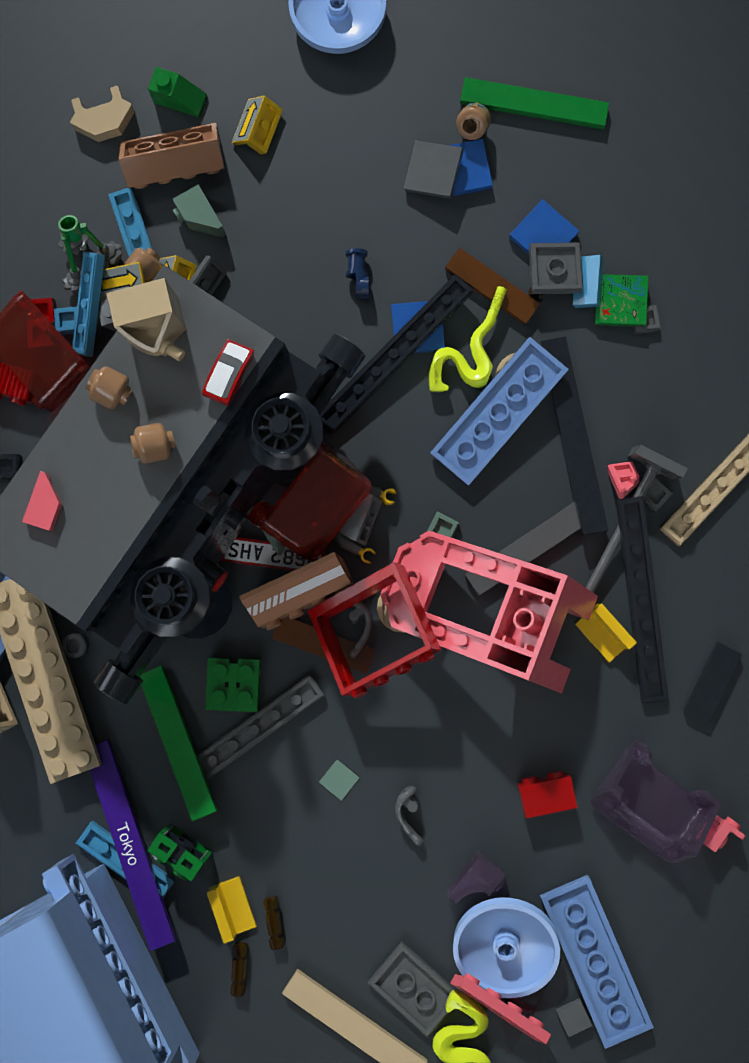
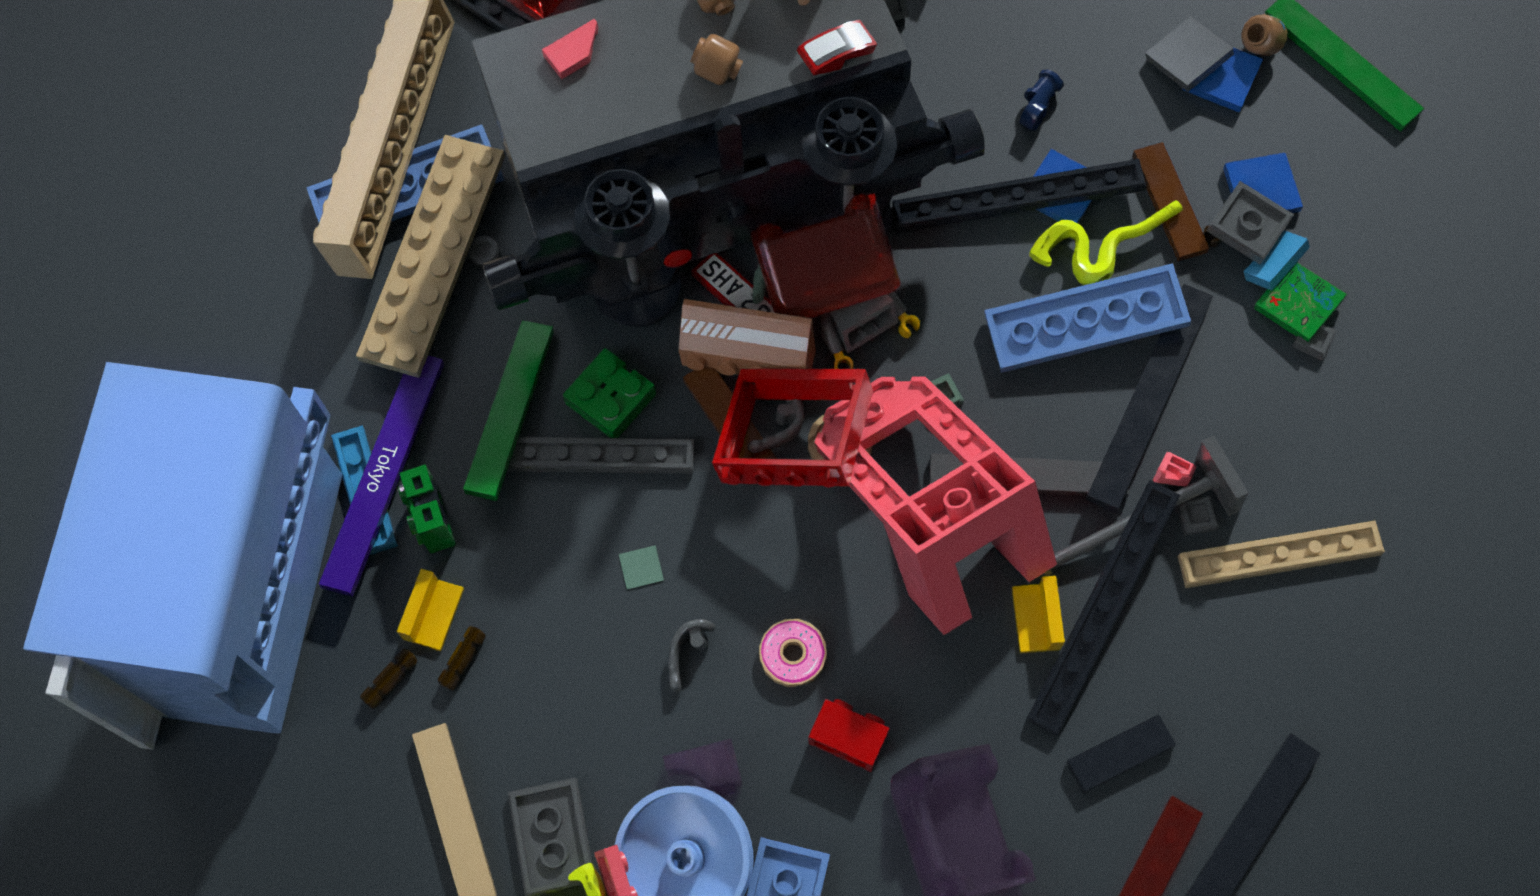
camera: 30 degrees right, 15 degrees down
(484, 777) = (792, 633): none -> tile

